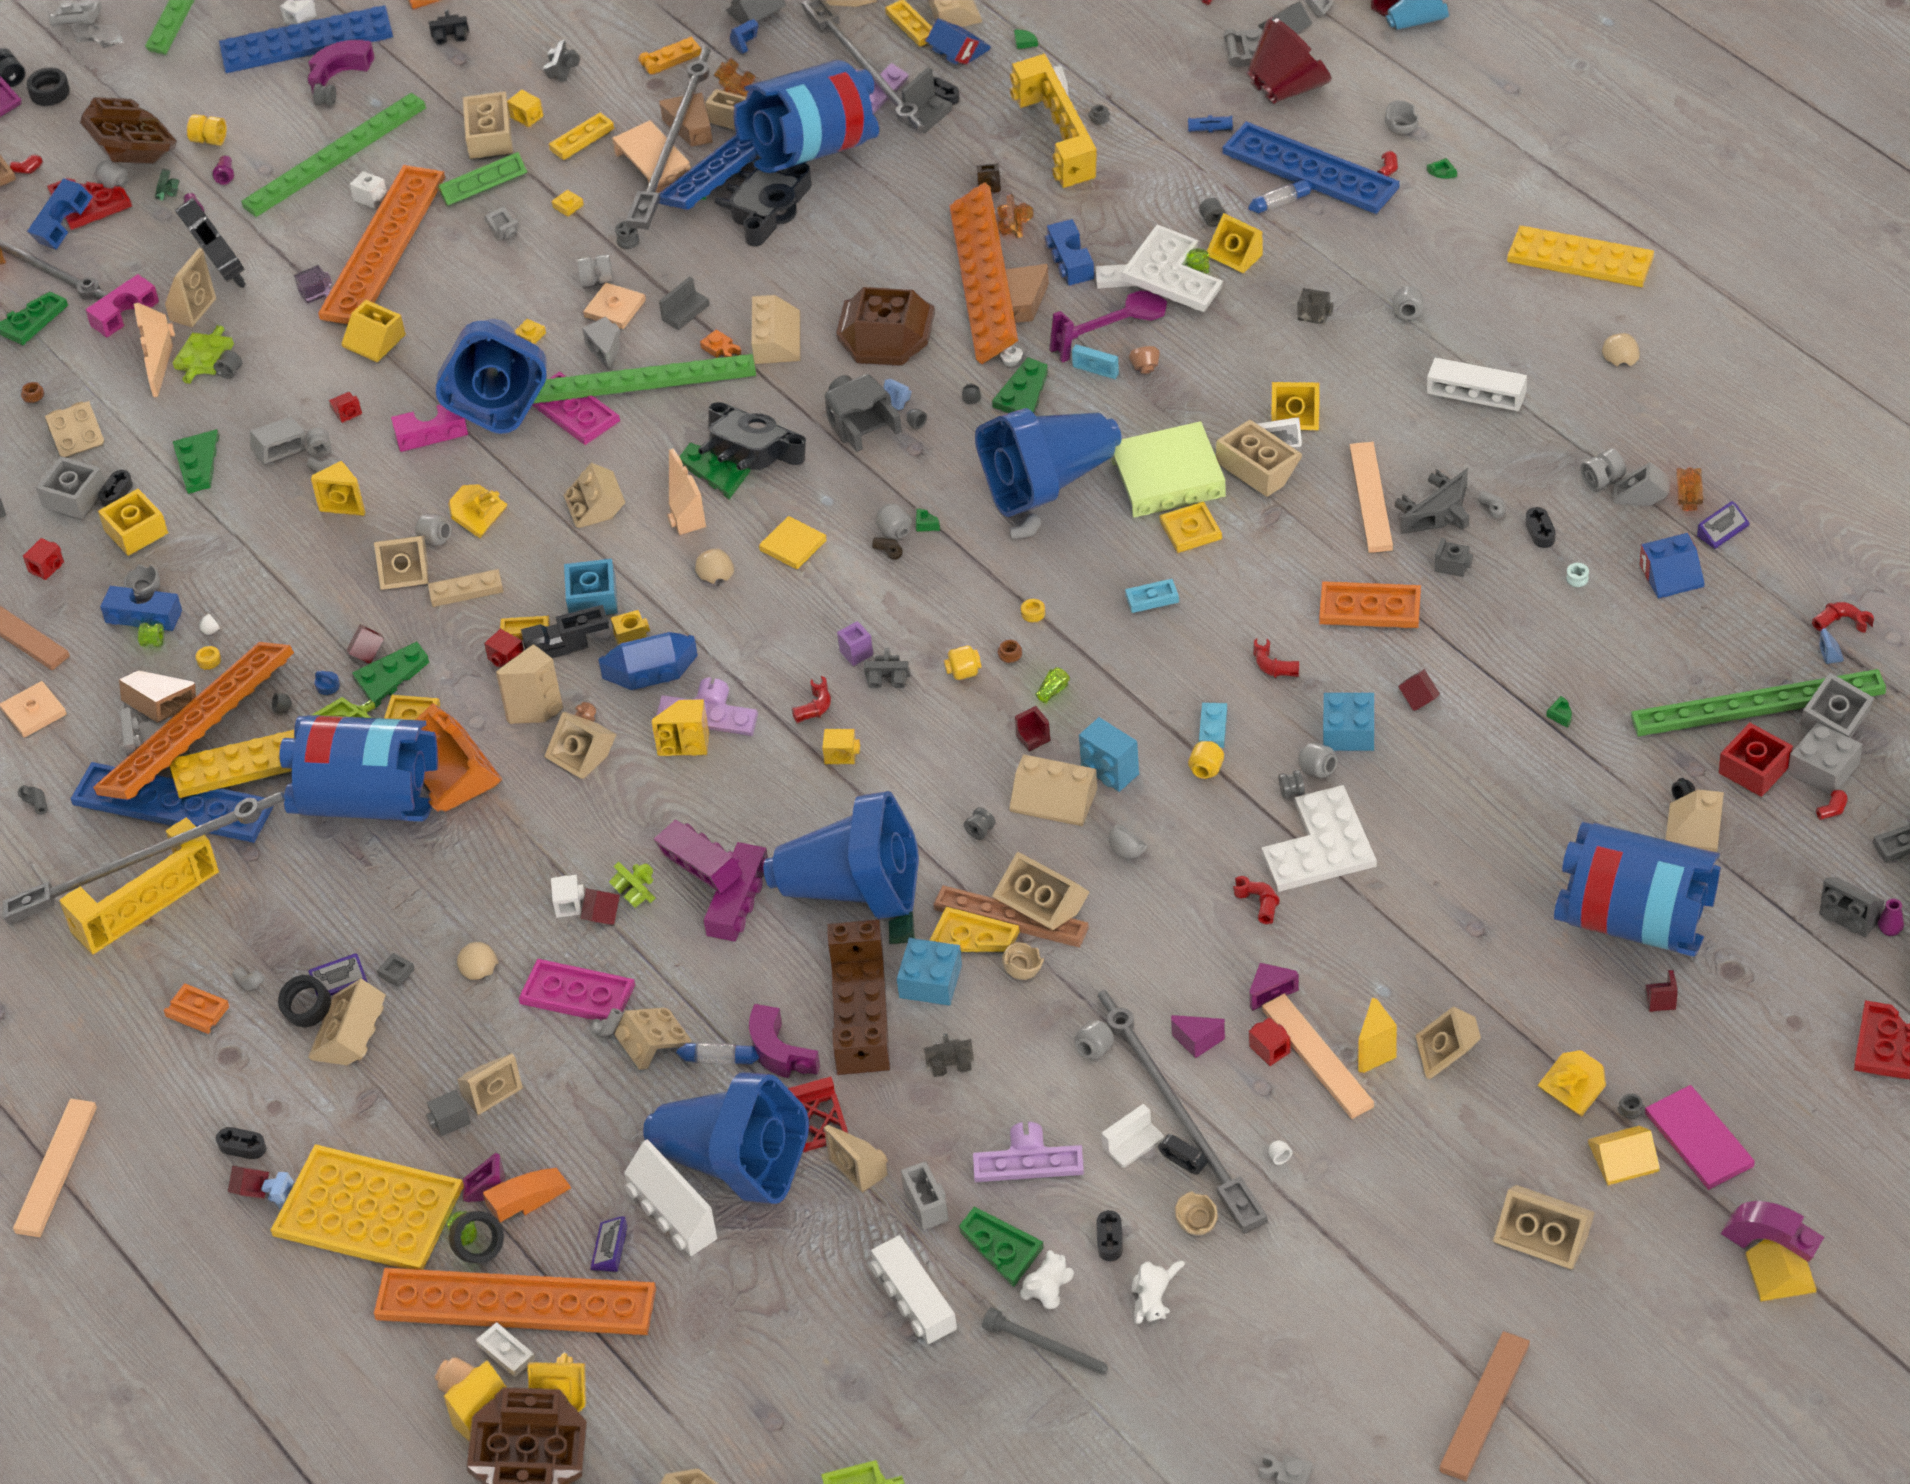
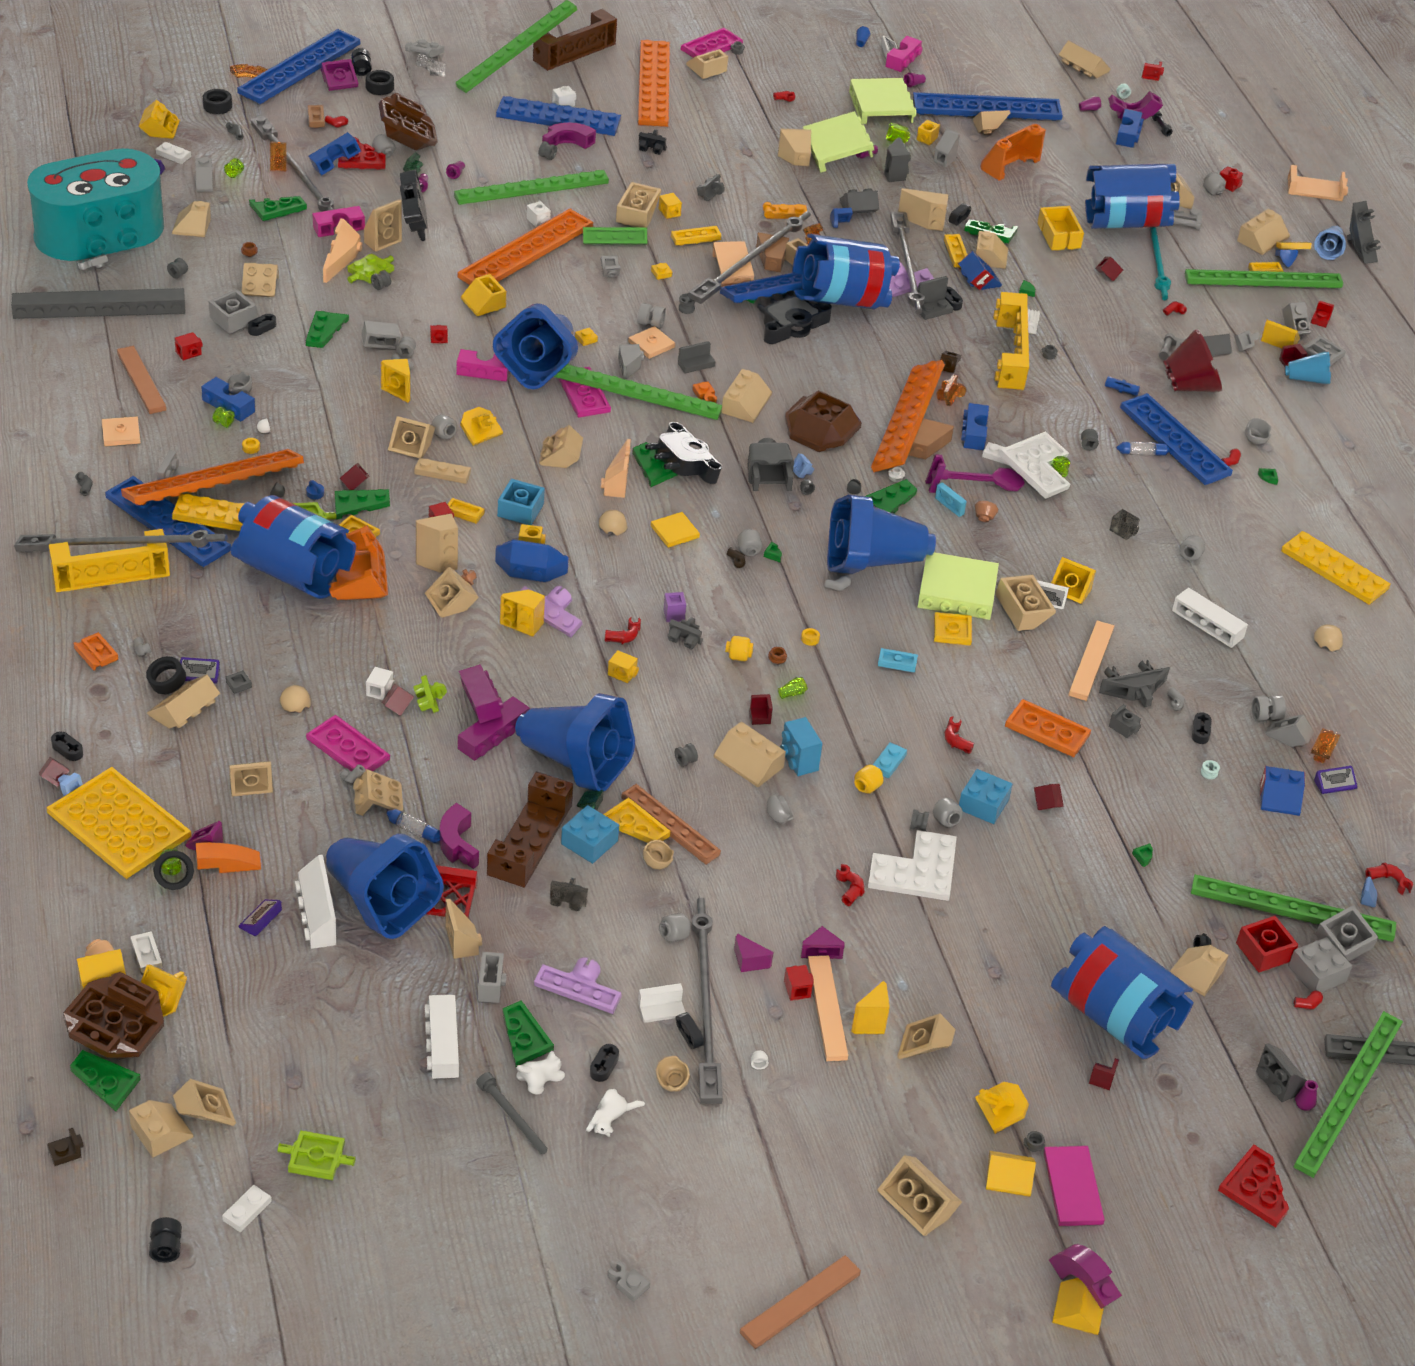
camera: 15 degrees right, 5 degrees down
(133, 522) = (257, 346): yellow brick -> none
(156, 694) = (201, 452): medium nougat slope -> none
(206, 129) = (460, 142): yellow wheel -> none
(313, 284) = (466, 254): clear purple brick -> none
(447, 1113) = (210, 785): dark grey brick -> none
(515, 1301) = (175, 924): orange plate -> none
(568, 633) = (485, 523): black plate -> none
(1040, 892) = (697, 815): tan slope -> none
(1236, 243) = (1093, 465): yellow slope -> none

